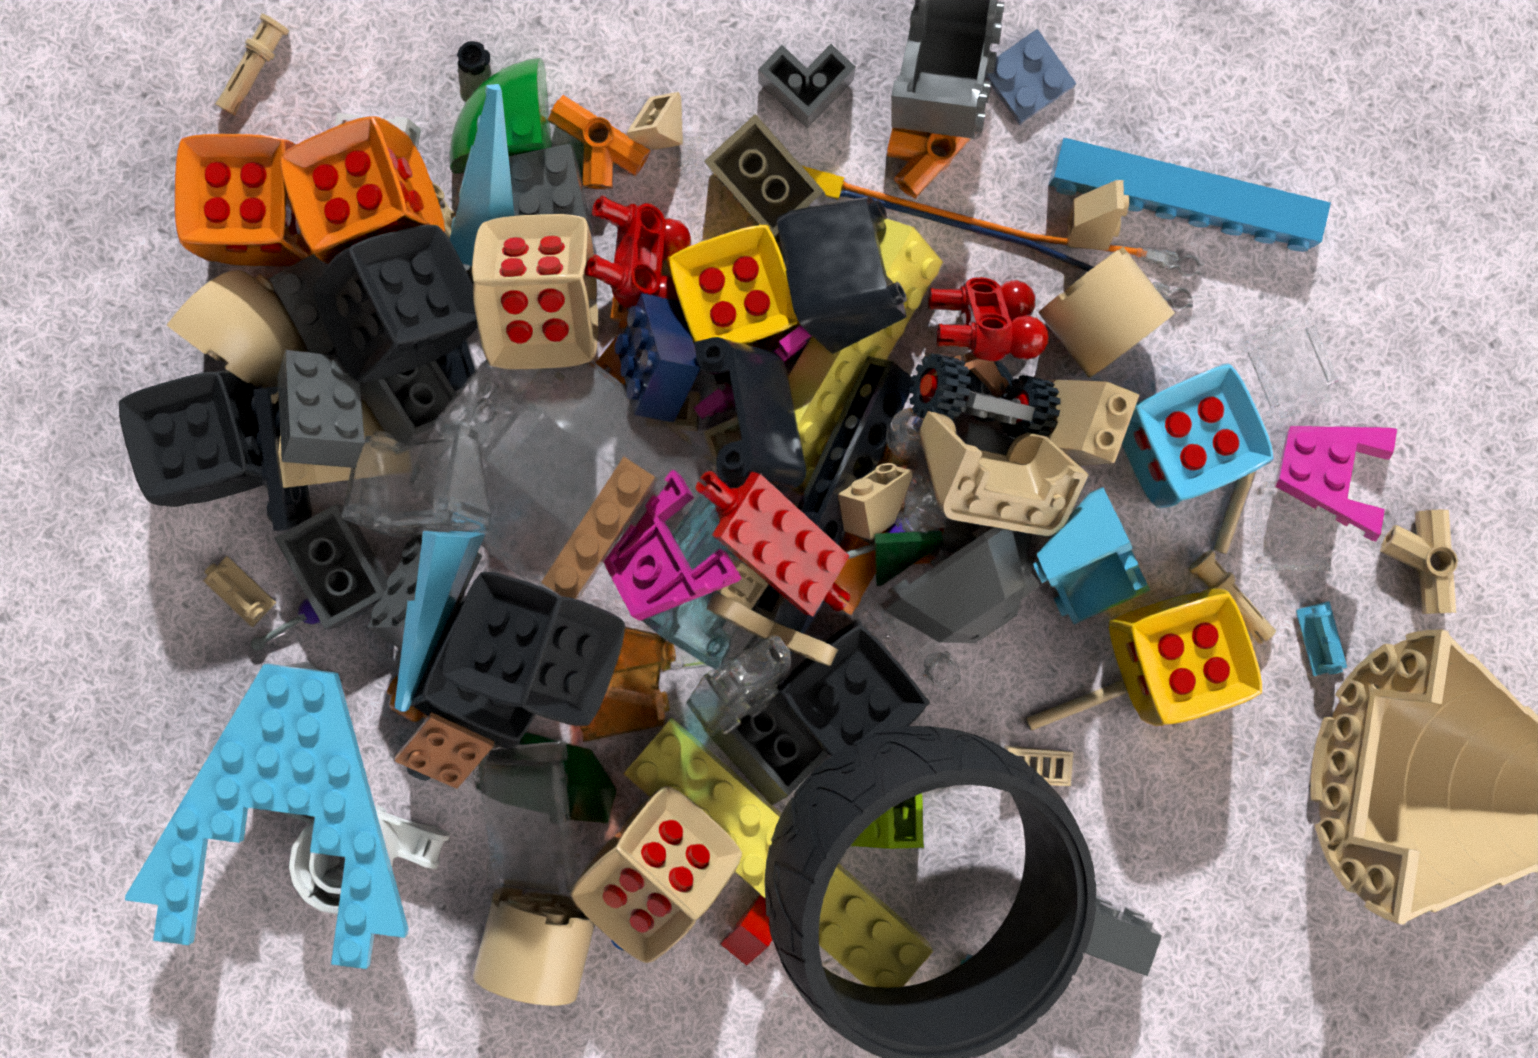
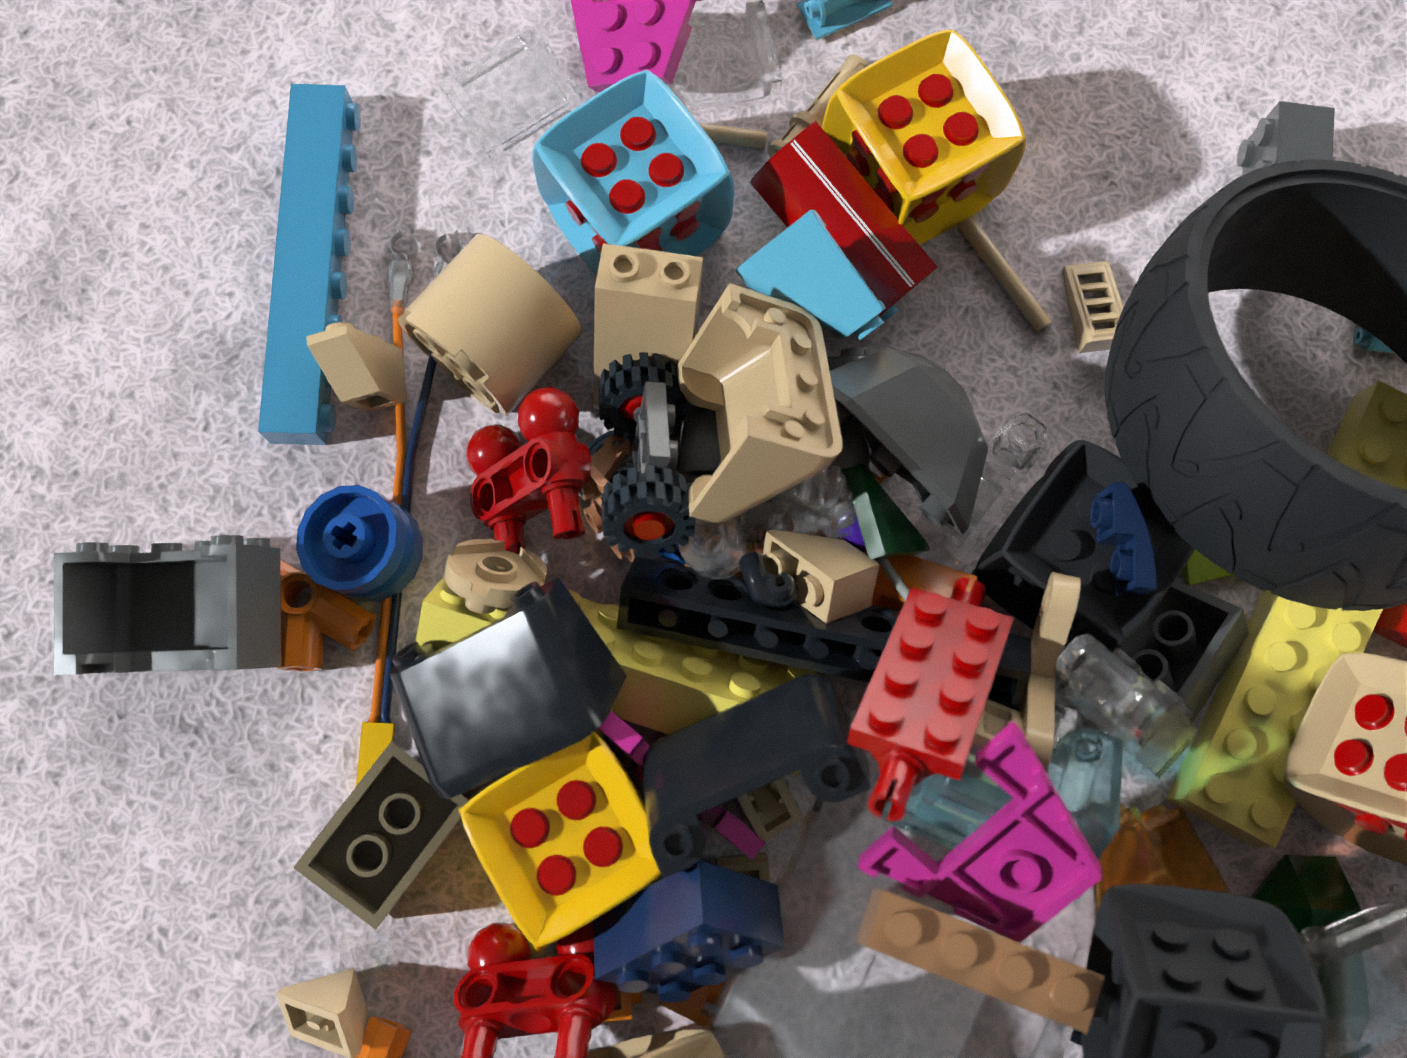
camera: 110 degrees left, 10 degrees down
(806, 90) = (245, 804): dark grey brick -> none
(861, 708) = (1123, 525): none -> dark blue slope
(871, 458) = (765, 587): none -> black arm
(920, 292) = (489, 574): none -> tan plate
(967, 195) = (359, 543): none -> blue wheel
(1029, 77) = (179, 497): sand blue plate -> none
(1132, 582) = (818, 176): none -> red brick

